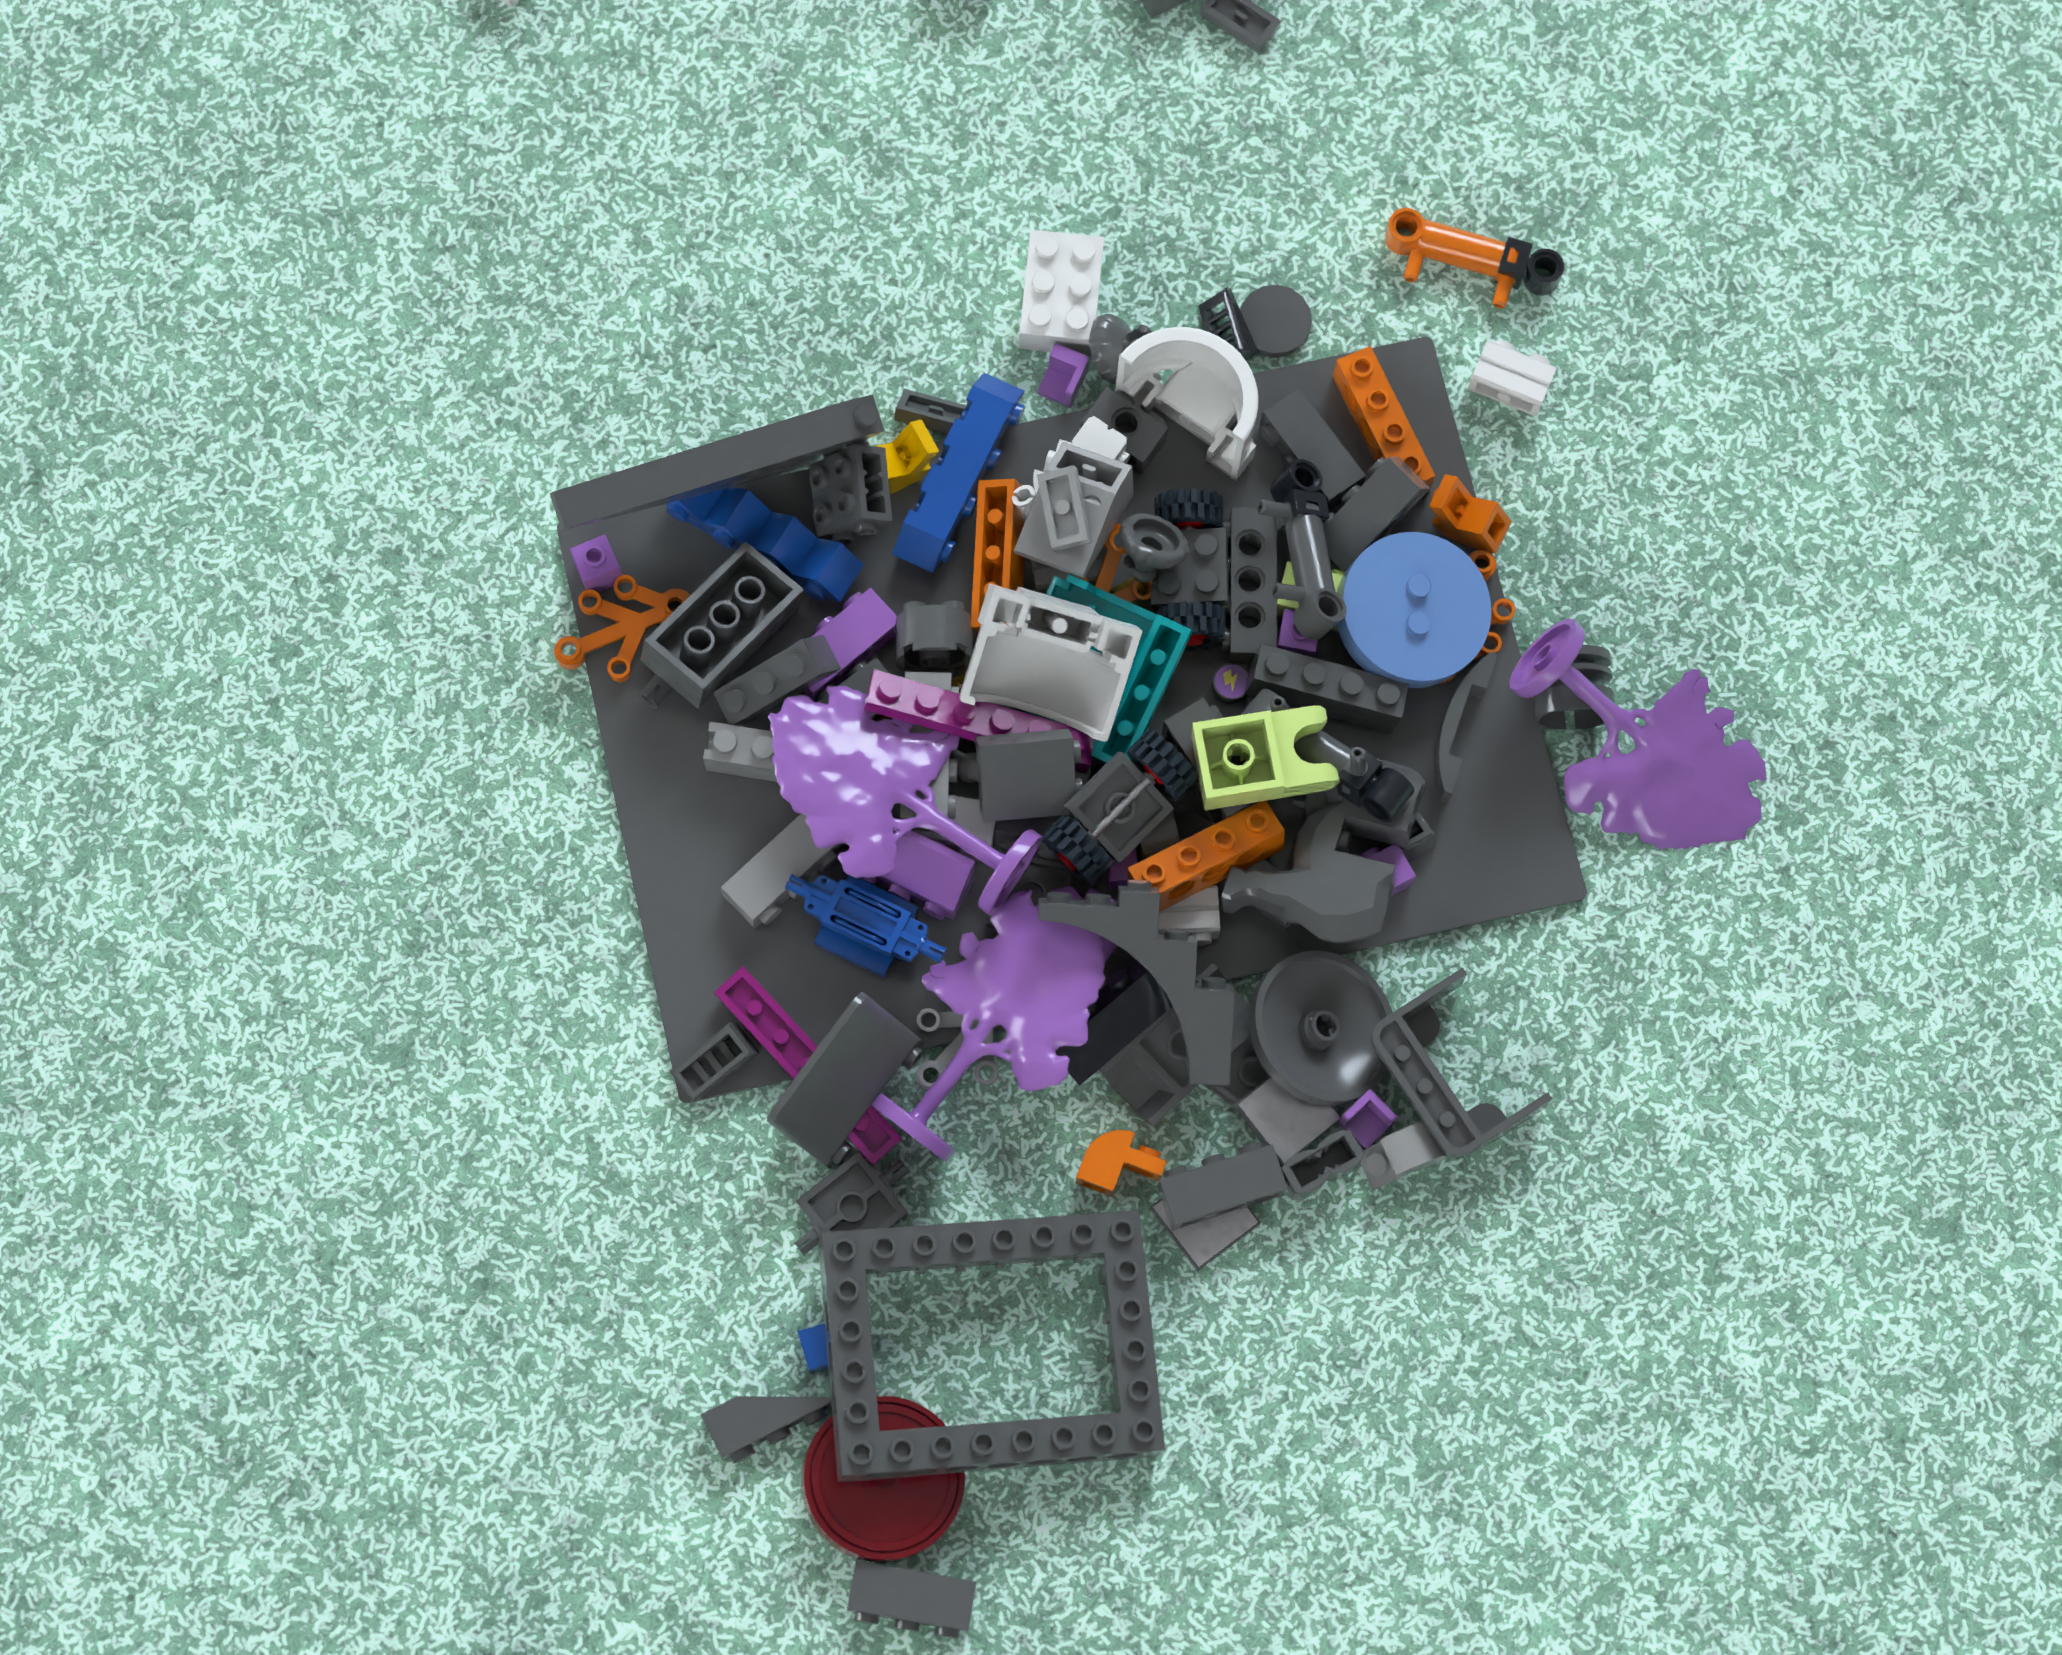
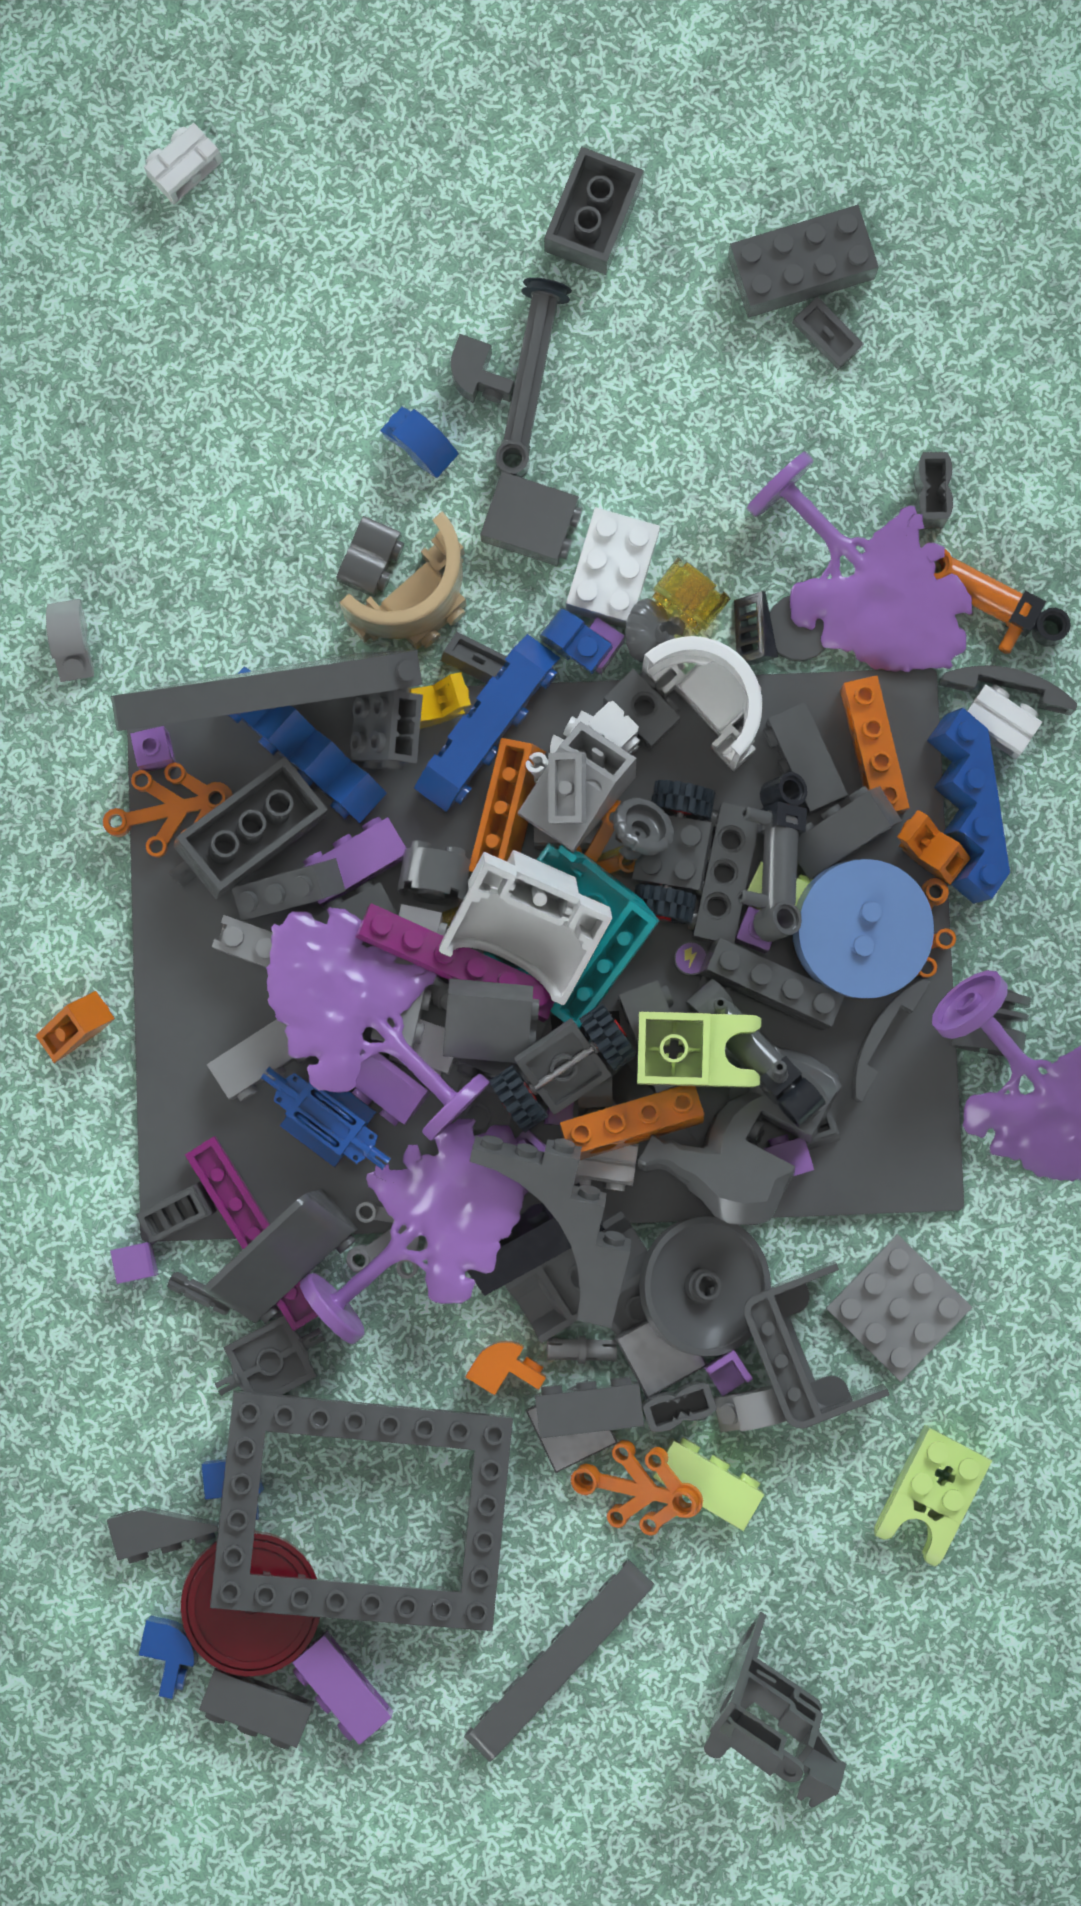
camera: 20 degrees right, 10 degrees up
(481, 471) = (68, 640): none -> light grey brick
(561, 880) = (74, 1026): none -> orange slope
(677, 1126) = (134, 1262): none -> medium lavender piece
(758, 1148) = (194, 1290): none -> dark grey axle
(794, 327) = (370, 557): none -> dark grey brick
(803, 1545) = (168, 1642): none -> blue brick
(827, 196) = (420, 440): none -> blue brick
(864, 359) = (422, 601): none -> tan piece
(868, 123) = (470, 374): none -> dark grey brick
(931, 28) = (544, 297): none -> dark grey piece
(962, 258) = (531, 519): none -> dark grey brick
(1004, 1557) = (342, 1688): none -> medium lavender brick
(1037, 370) = (575, 640): none -> blue brick
(1150, 299) = (691, 595): none -> clear yellow brick
(1199, 1128) = (581, 1349): none -> light grey pin
(1244, 1478) = (557, 1664): none -> dark grey beam
(1301, 1264) = (641, 1488): none -> orange plant
(1367, 279) = (892, 604): none -> medium lavender plant
(1372, 1246) = (722, 1491): none -> yellowish green brick
(1387, 153) = (931, 484): none -> dark grey brick
(1500, 454) = (973, 789): none -> blue brick
(1502, 1492) = (797, 1713): none -> dark grey container
(1540, 1017) = (898, 1307): none -> light grey plate
(1560, 342) = (1051, 696): none -> dark grey slope
(1619, 1216) = (936, 1503): none -> yellowish green brick

